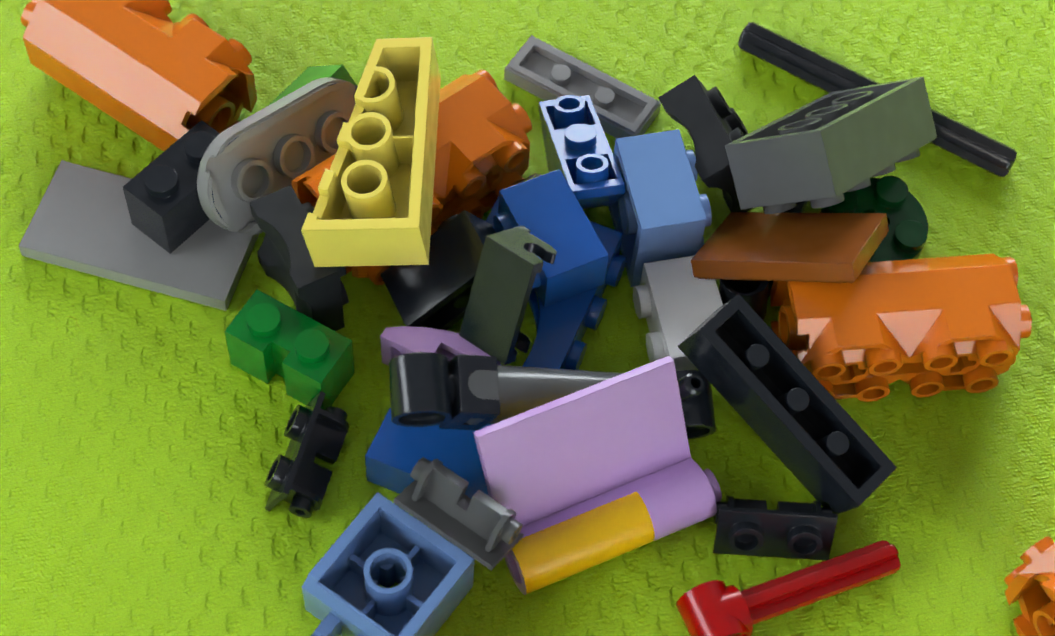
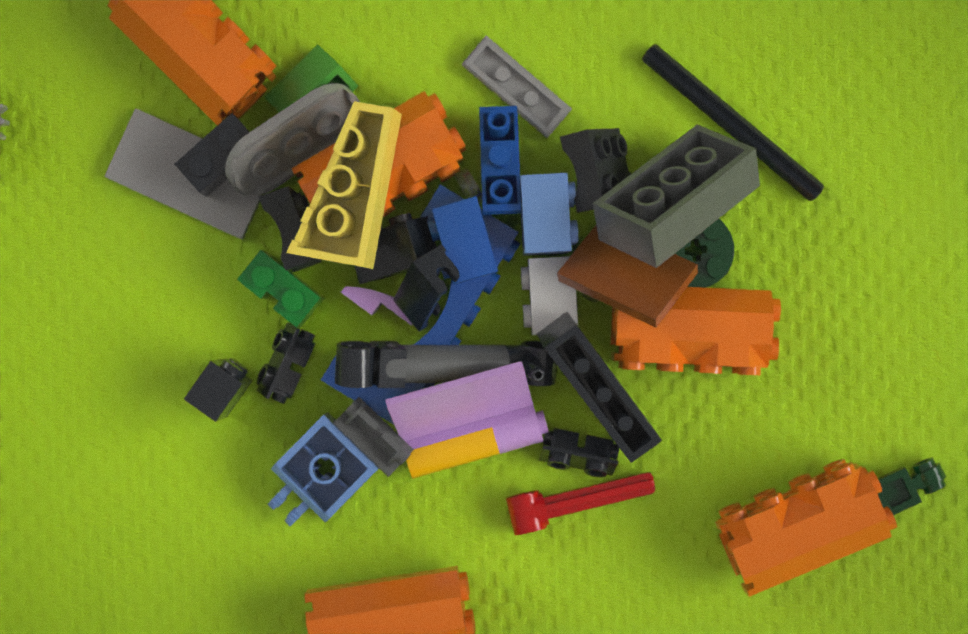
camera: 15 degrees right, 30 degrees up
(208, 485) = (219, 388): none -> black brick

